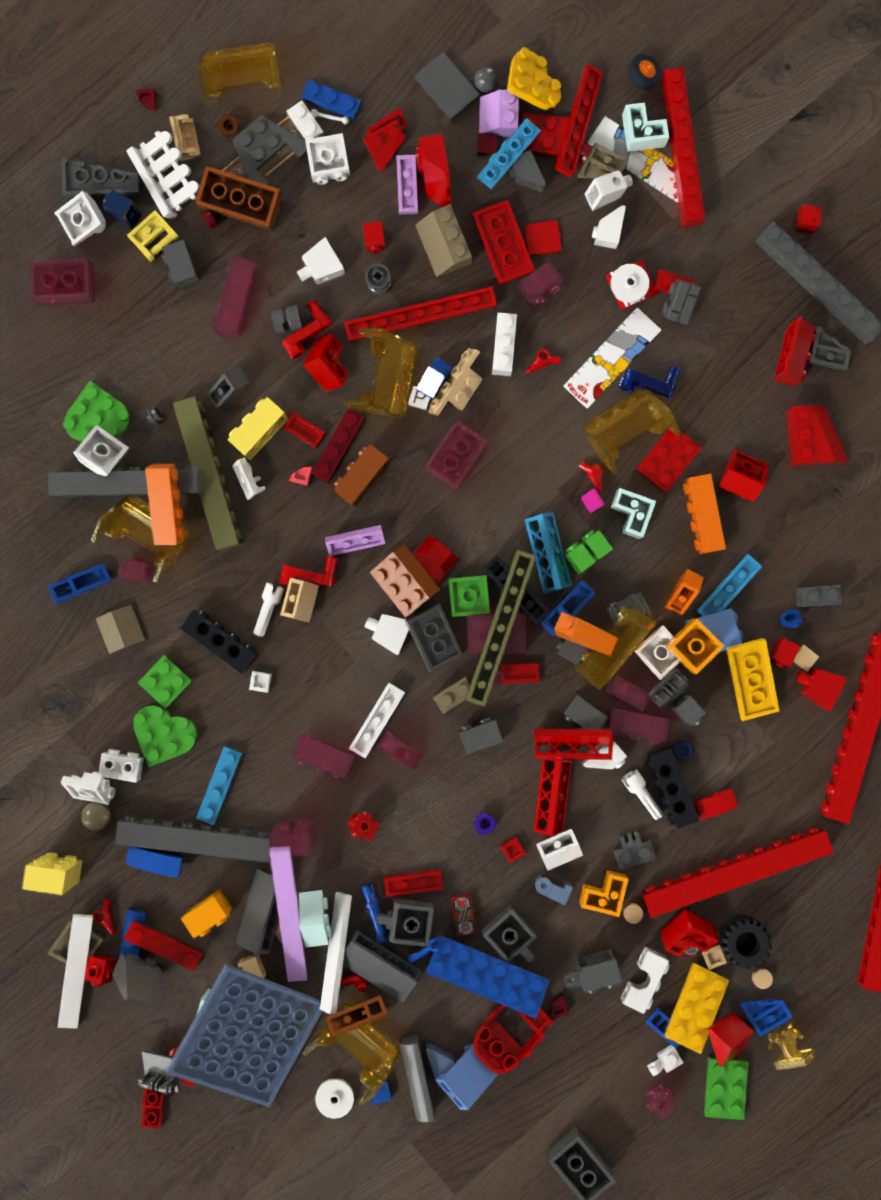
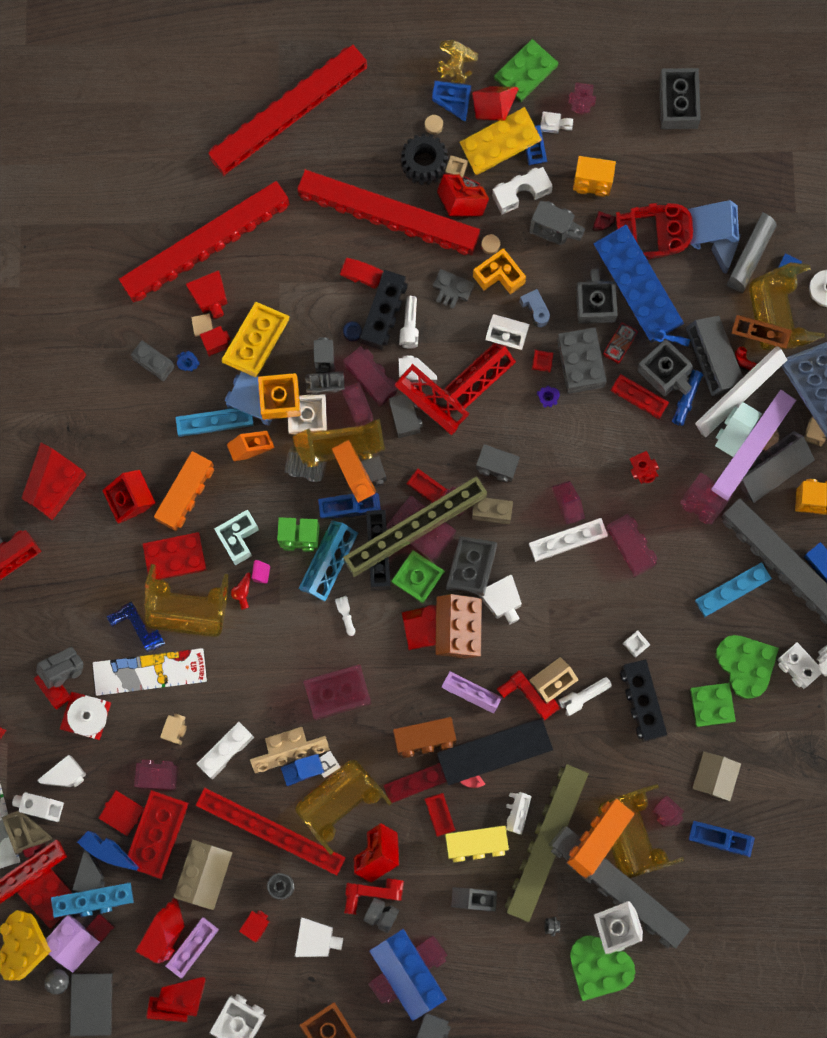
camera: 140 degrees left, 10 degrees down
(229, 290) = (408, 975): none -> blue slope
(301, 510) = (495, 751): none -> black sticker
(482, 874) = (581, 360): none -> dark grey brick
(505, 525) = (343, 608): none -> white piece
(528, 198) = (106, 851): none -> blue slope
(542, 360) = (205, 714): red animal -> none
(556, 328) = (174, 729): none -> tan brick
(596, 1040) = (594, 176): none -> light orange brick

